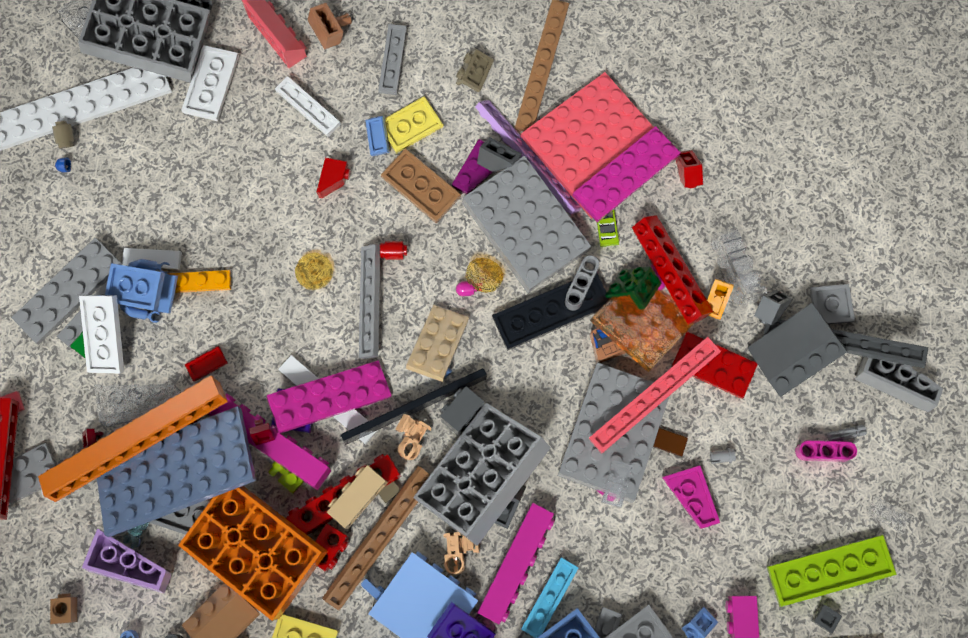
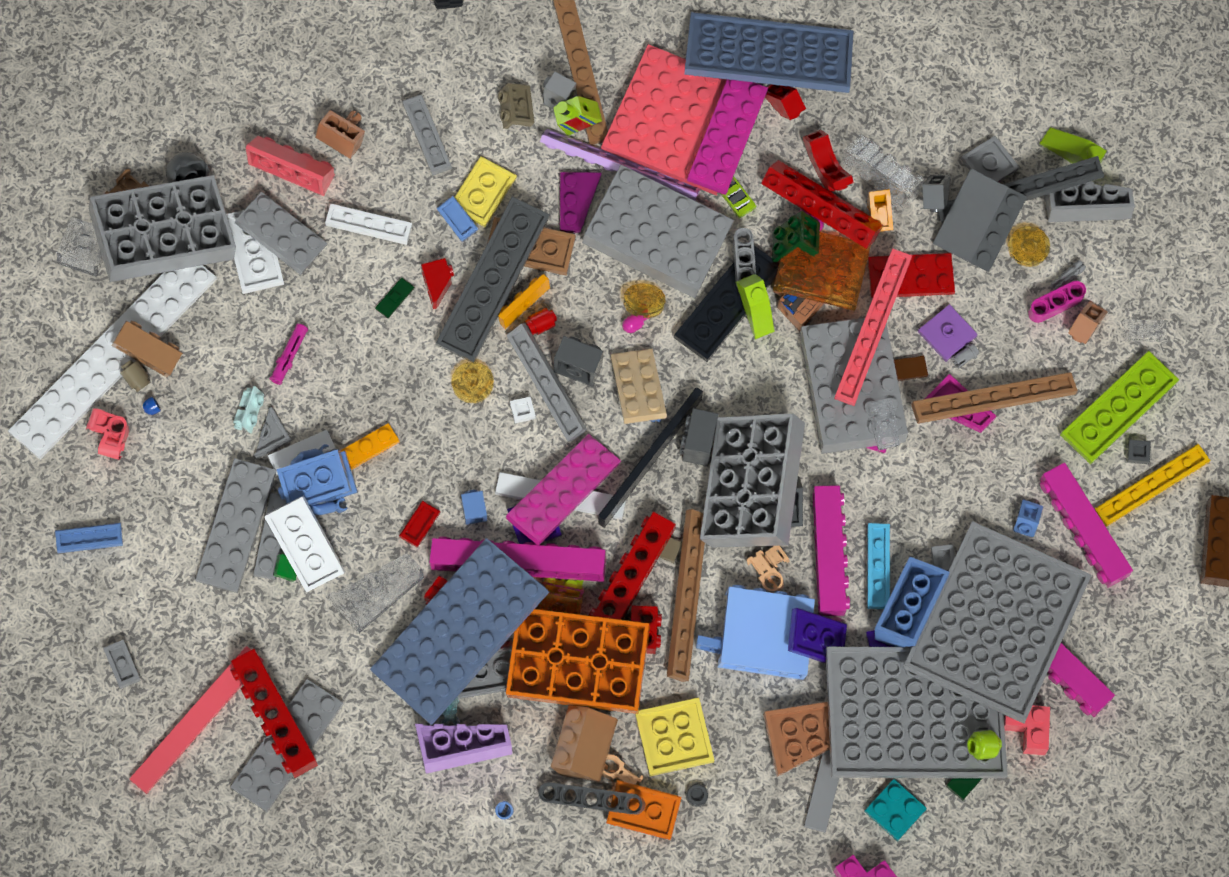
camera: 35 degrees left, 5 degrees down
(16, 177) = (104, 423): none -> coral piece
(56, 614) = (429, 826): medium nougat brick -> none
(81, 118) = (147, 348): none -> medium nougat brick
(89, 437) = (351, 652): dark red tile -> none
(129, 209) = (252, 401): none -> light aqua hinge
(132, 439) = (400, 621): orange brick -> none
(138, 234) = (272, 435): none -> light grey tile
(205, 163) = (285, 361): none -> dark pink pin
(236, 80) = (280, 233): none -> light grey plate
(253, 372) = (474, 507): none -> medium blue brick
(261, 432) = (524, 550): dark red tile -> none
(273, 488) = (570, 598): none -> clear orange brick
(294, 174) = (394, 298): none -> dark green piece
(338, 313) = (522, 410): none -> white plate
(356, 496) = (648, 562): tan brick -> none
(374, 197) = (492, 279): none -> dark grey plate
(389, 226) = (523, 301): none -> light orange tile
(401, 297) = (578, 360): none -> dark grey brick
(413, 432) = (664, 481): light nougat piece -> none
(496, 155) = (593, 178): dark grey slope -> none
(511, 75) = (558, 89): none -> light grey brick
(514, 98) = (577, 114): none -> lime torso
(569, 325) = (756, 305): none -> lime slope
(694, 236) = (825, 163): none -> red arch
(697, 125) = (769, 52): none -> sand blue plate
(718, 429) = (947, 333): none -> medium lavender plate
(726, 507) = (994, 398): none -> medium nougat plate
(827, 391) = (1029, 246): none -> clear yellow tile
(842, 482) = (1087, 322): none -> nougat slope
(909, 326) = (1071, 146): none -> lime slope

